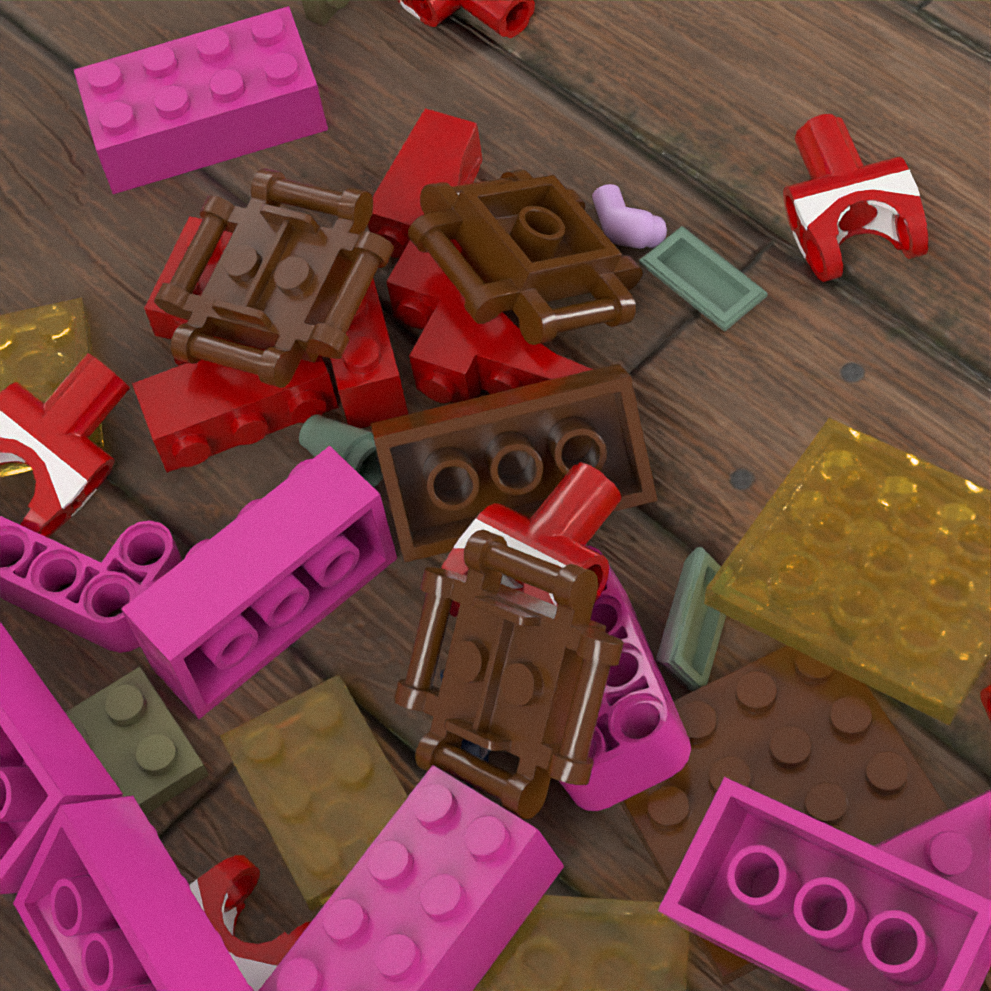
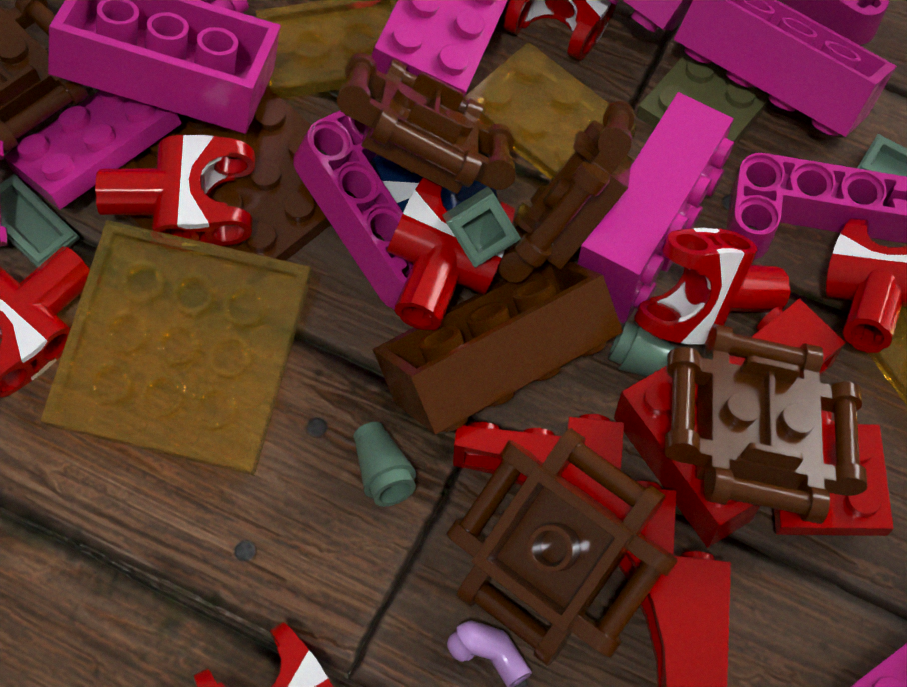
camera: 150 degrees right, 5 degrees up
(233, 466) = (714, 283): none -> red connector
(355, 566) = (575, 197): none -> reddish brown brick
(495, 515) = (481, 226): none -> sand green slope
(681, 399) = (383, 466): none -> sand green cone
(692, 626) = (322, 298): sand green tile -> none
(703, 278) = (399, 602): sand green tile -> none
(853, 742) = (180, 189): none -> red connector

